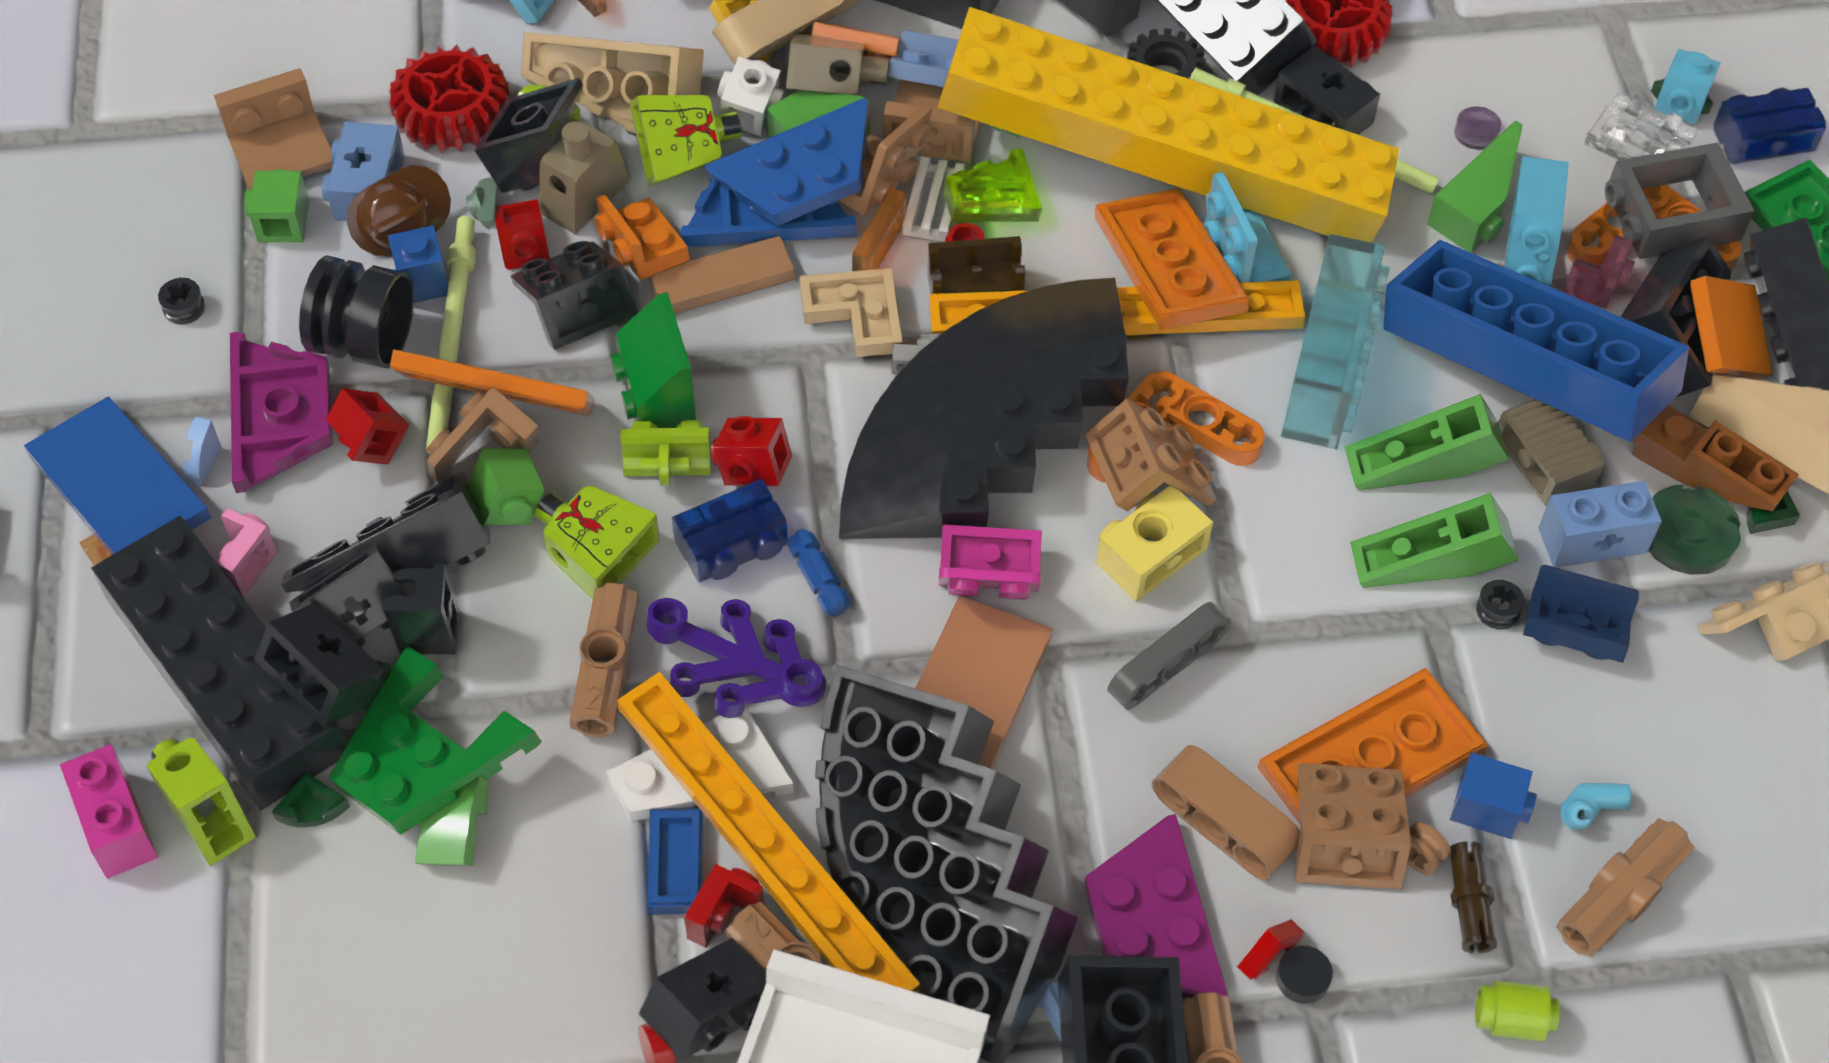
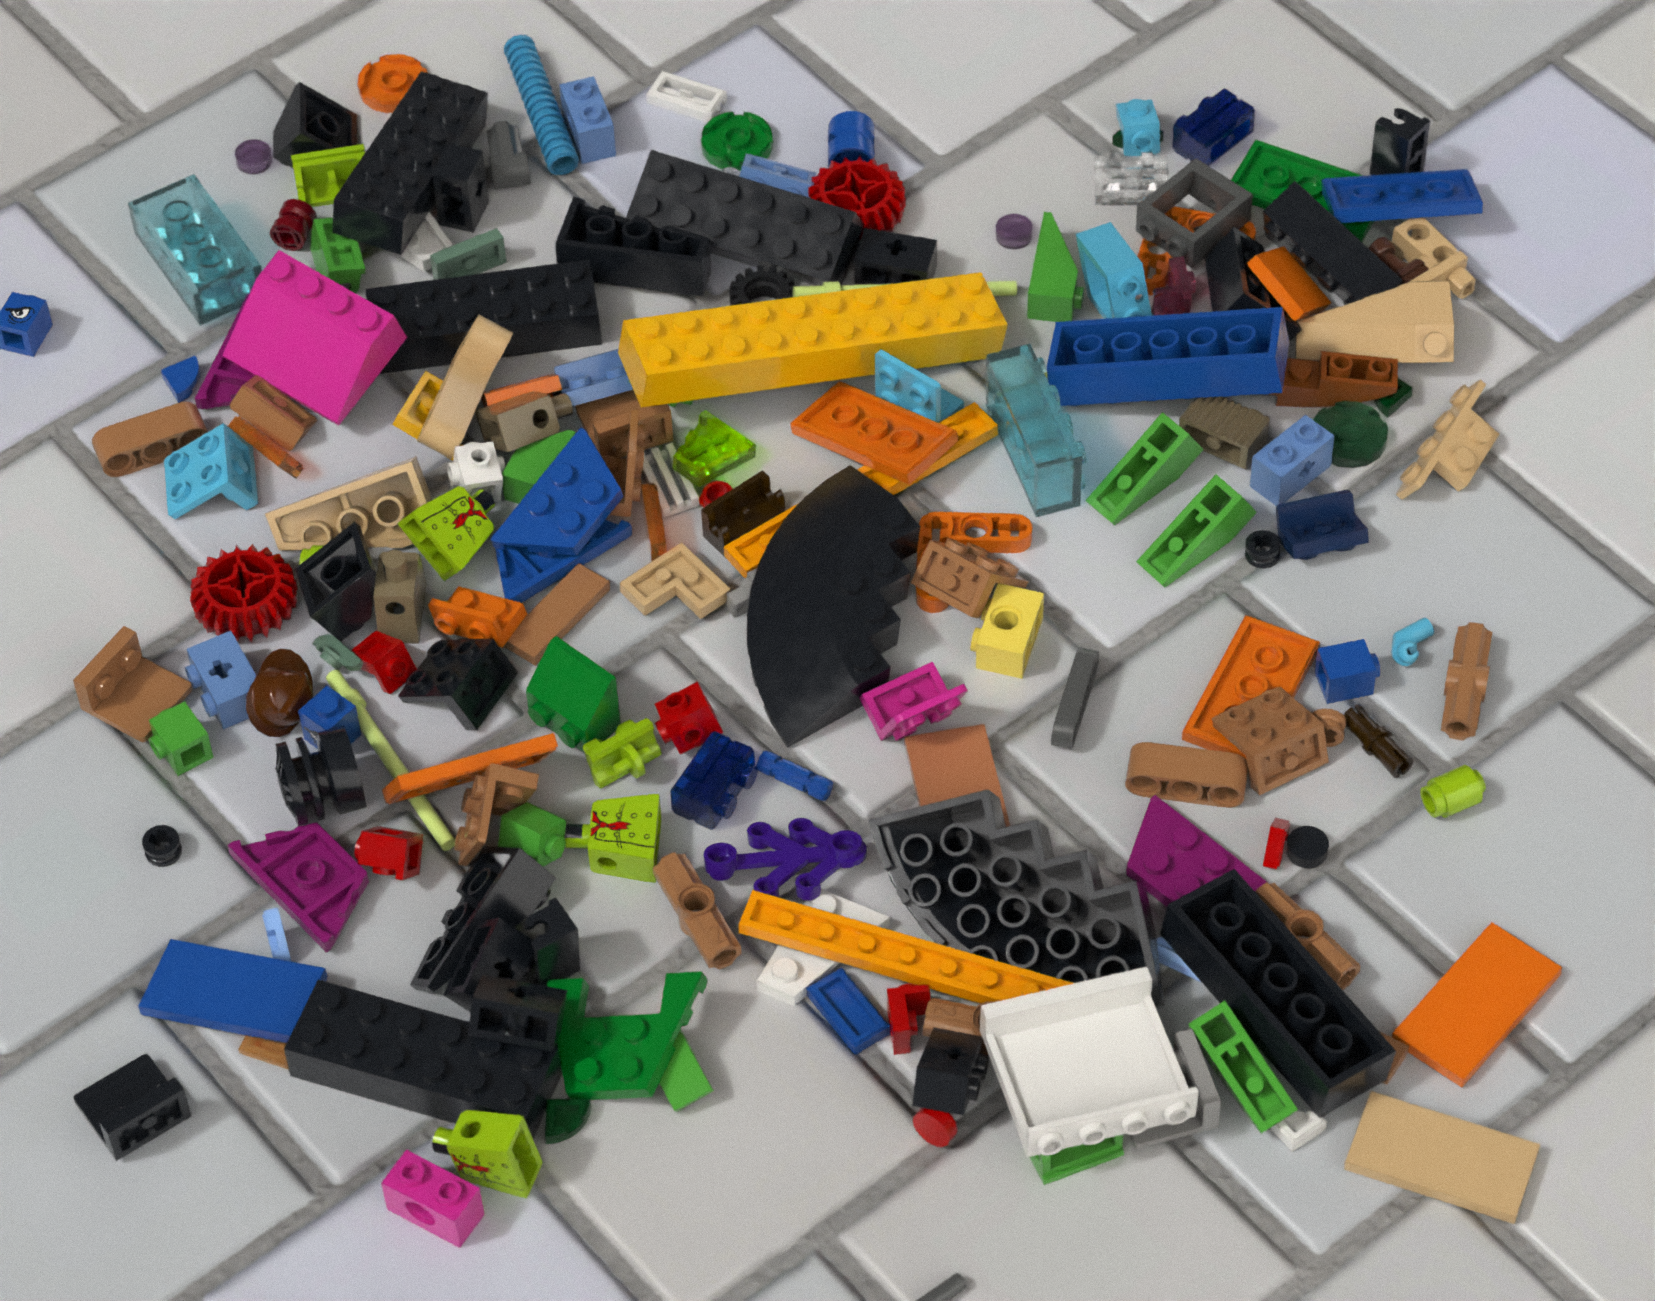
camera: 30 degrees left, 5 degrees down
(248, 551) = (370, 973): bright pink bracket -> none

